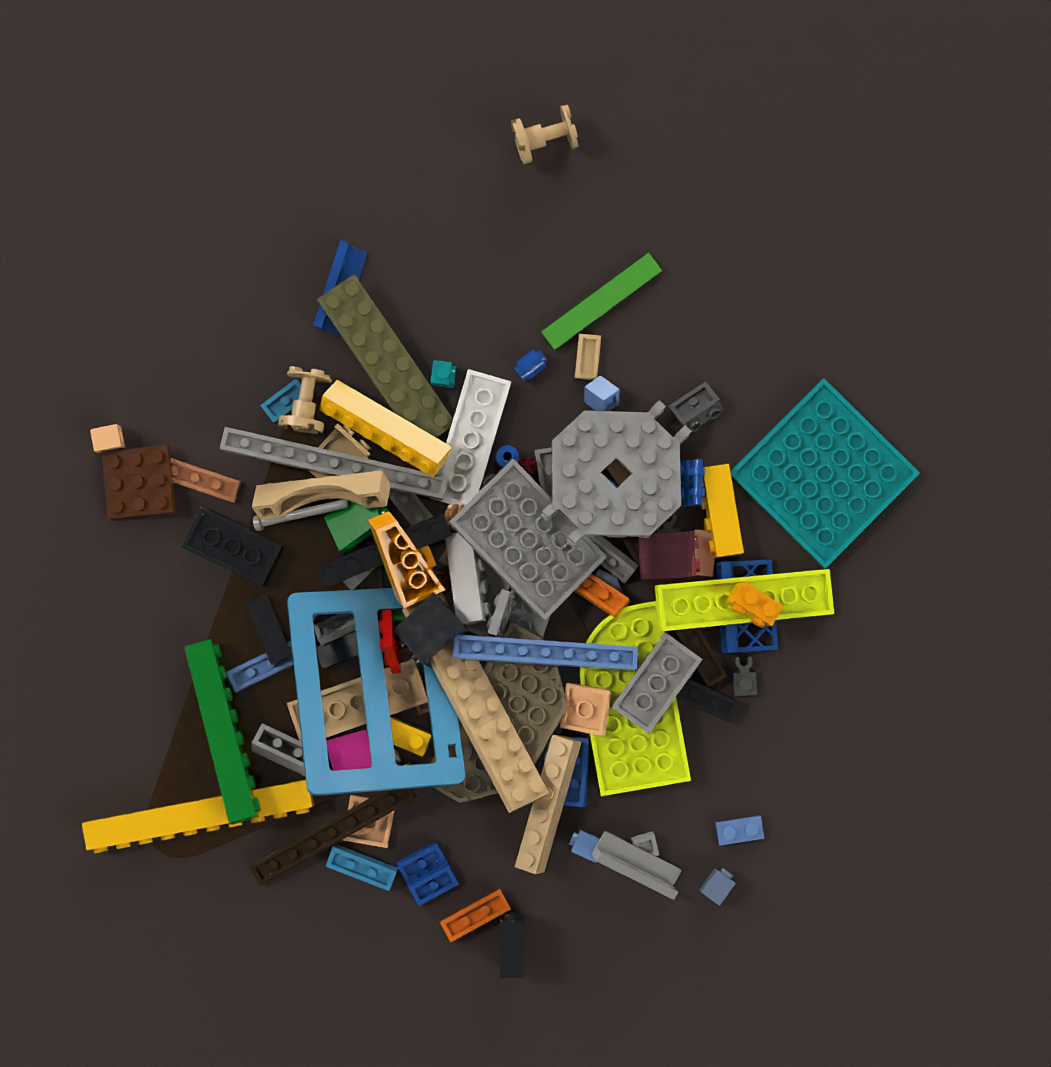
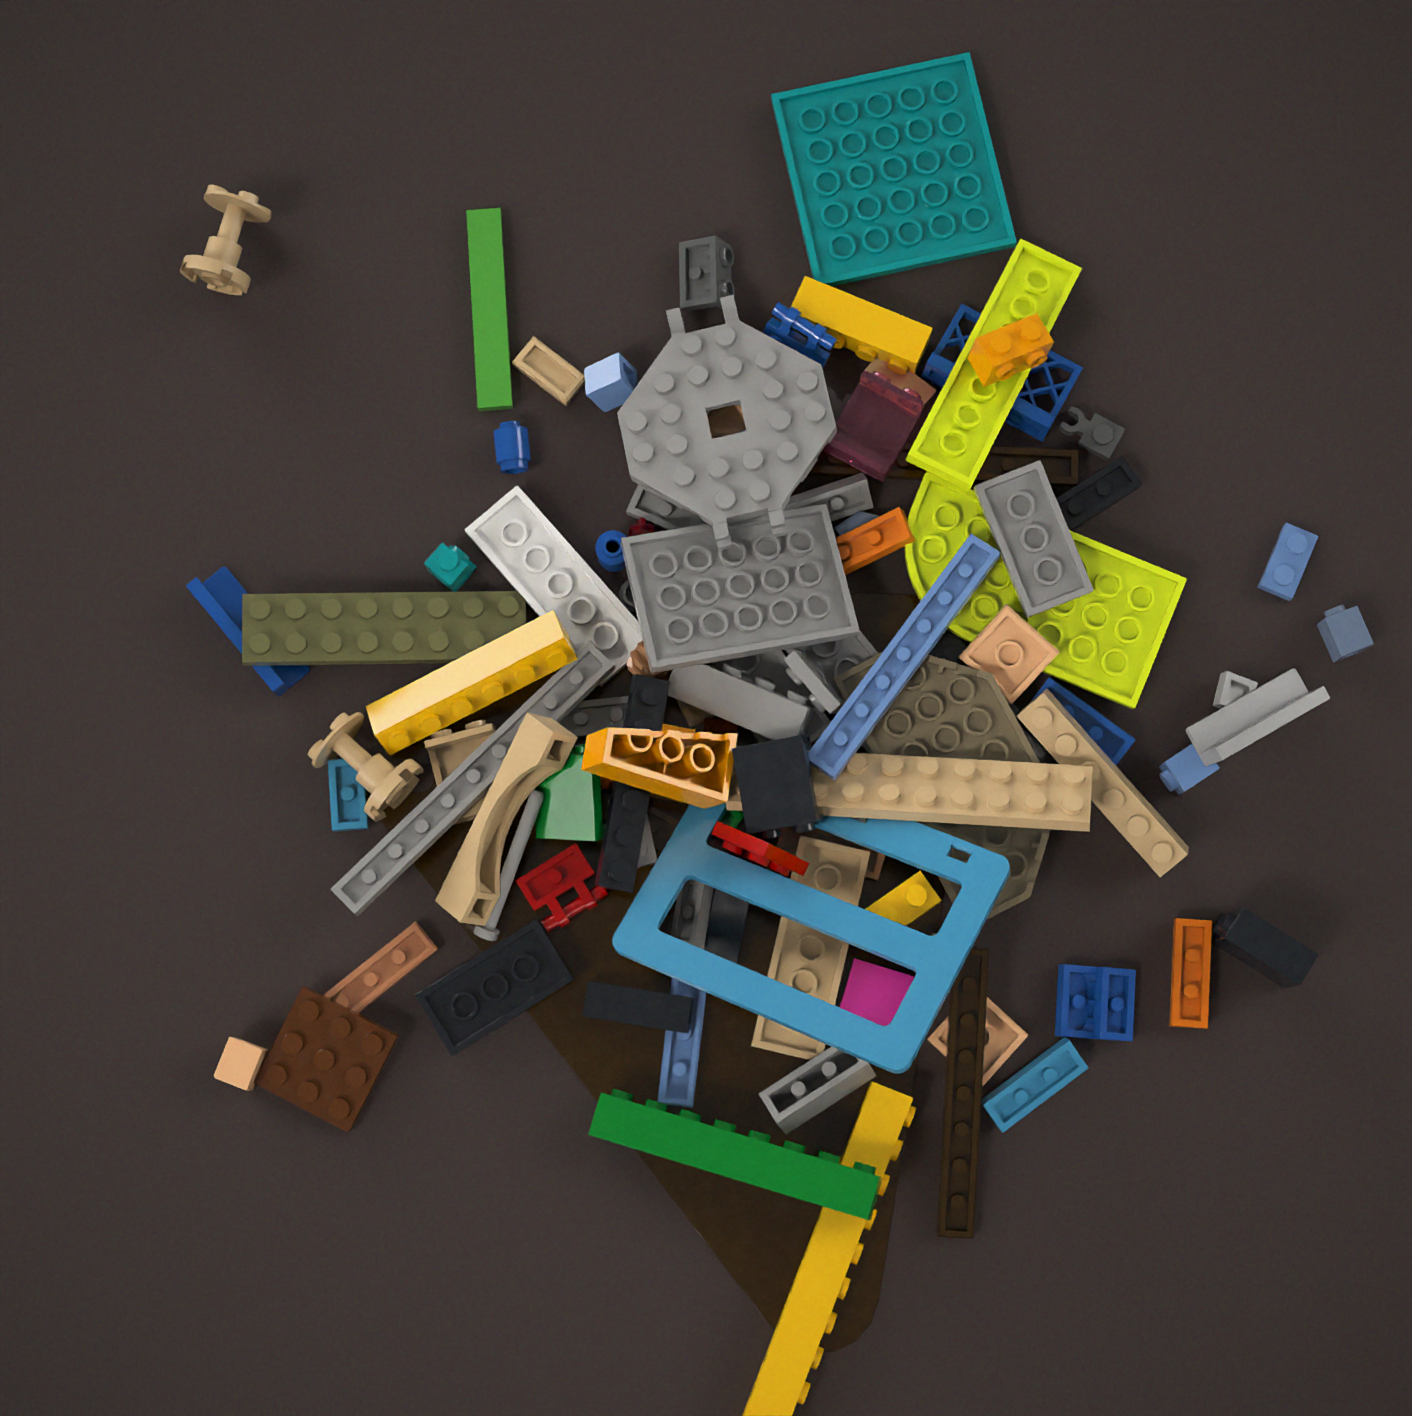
camera: 55 degrees left, 5 degrees down
(309, 540) = (554, 879): none -> red plate

